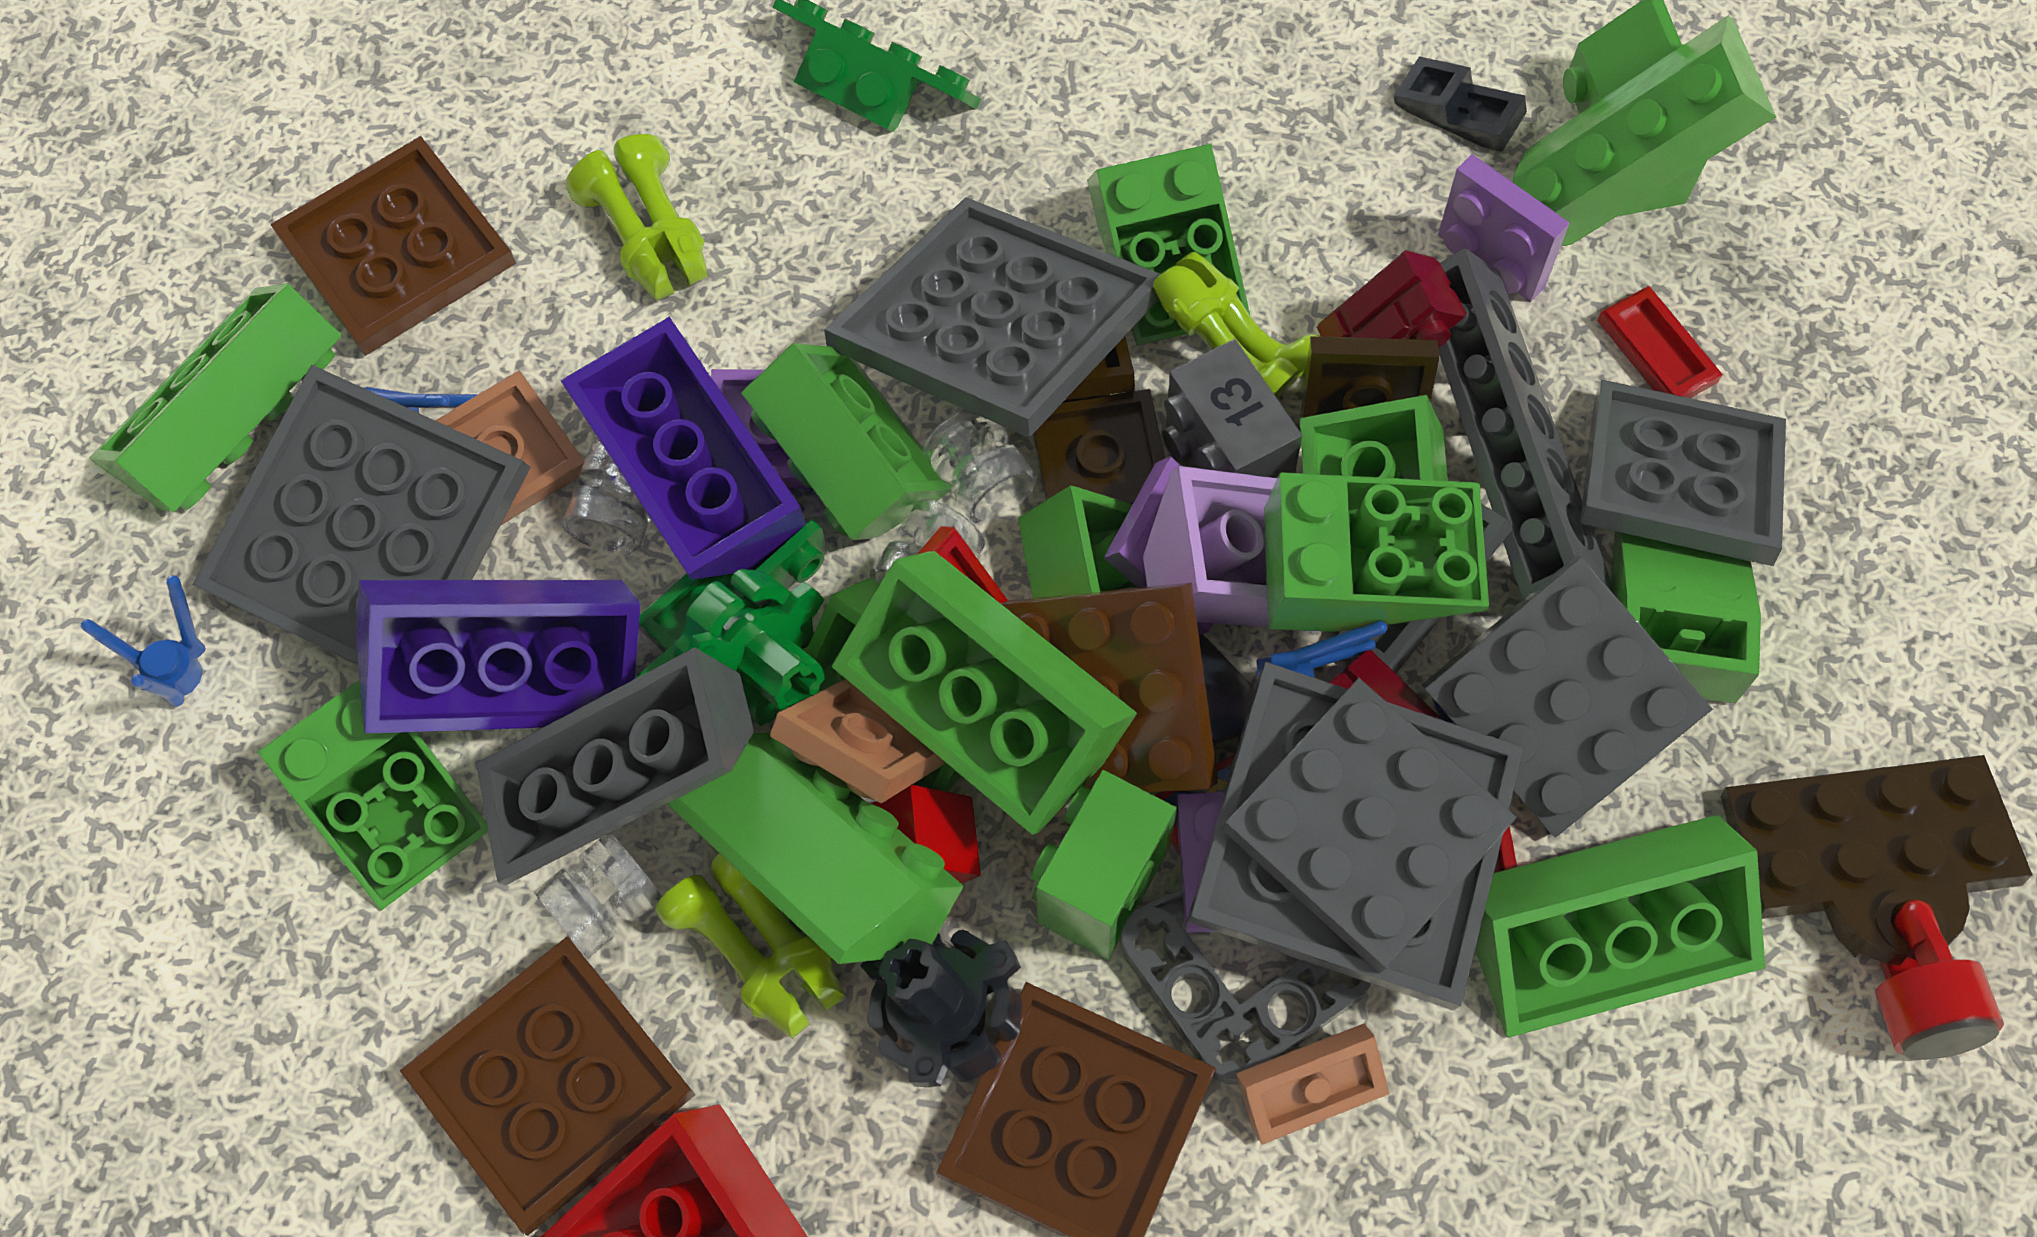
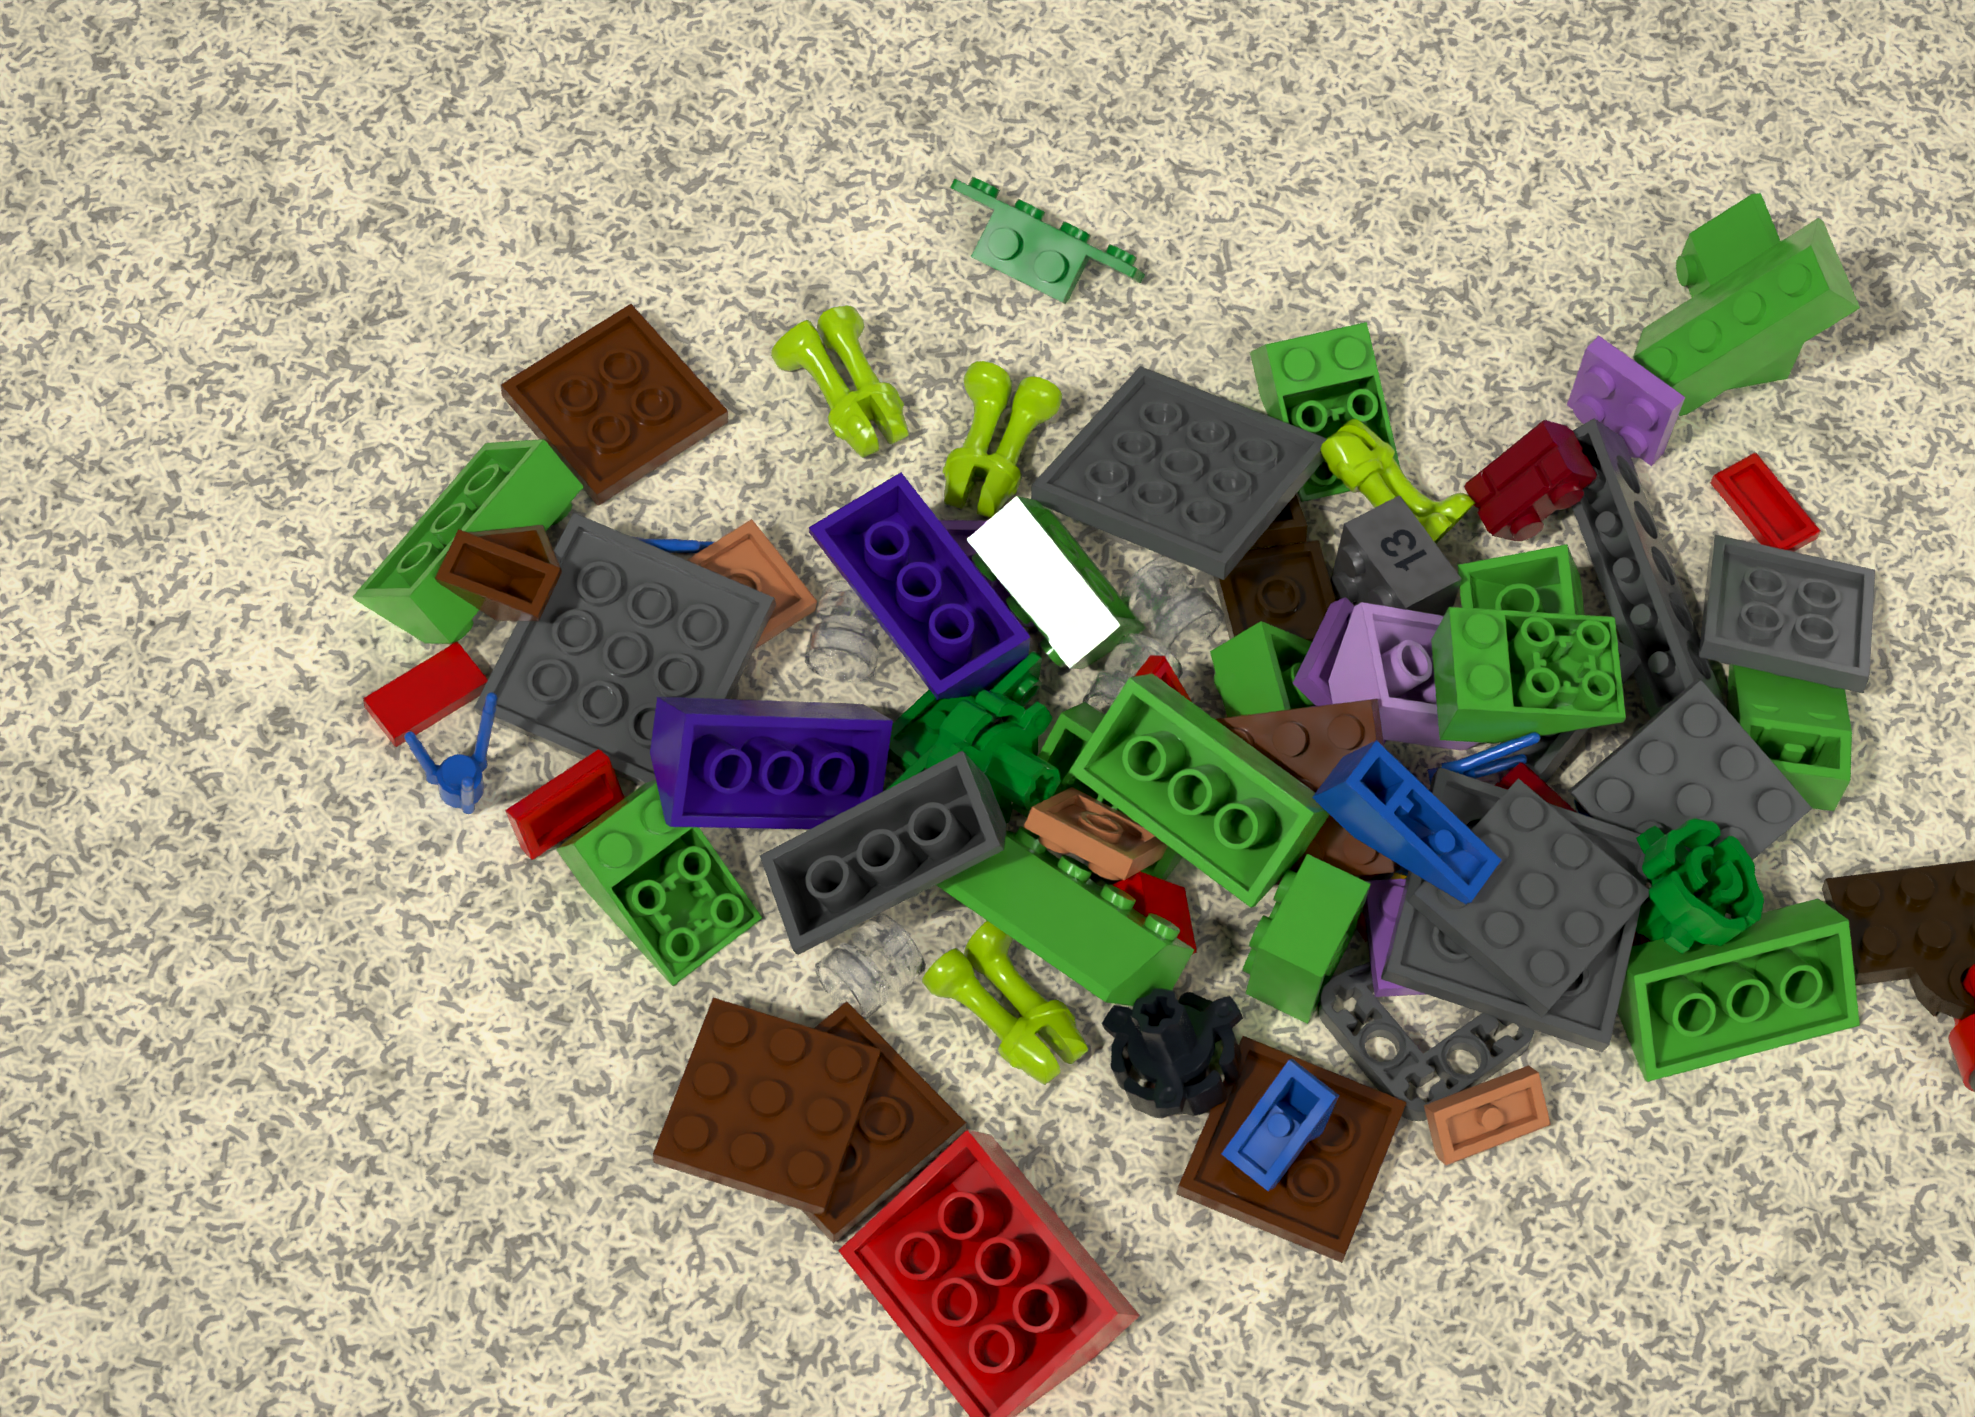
camera: 10 degrees left, 5 degrees down
(138, 571) = (426, 693): none -> red tile
(225, 428) = (502, 571): none -> reddish brown slope
(276, 697) = (565, 804): none -> red tile
(456, 1071) = (767, 1106): none -> reddish brown plate
(799, 224) = (990, 391): none -> lime piece
(1055, 1109) = (1281, 1125): none -> blue slope
(1217, 739) = (1405, 822): none -> blue slope
(1366, 372) = (1510, 525): dark brown plate -> none
(1449, 99) = (1573, 281): black slope -> none
(1565, 817) = (1689, 894): none -> green piece

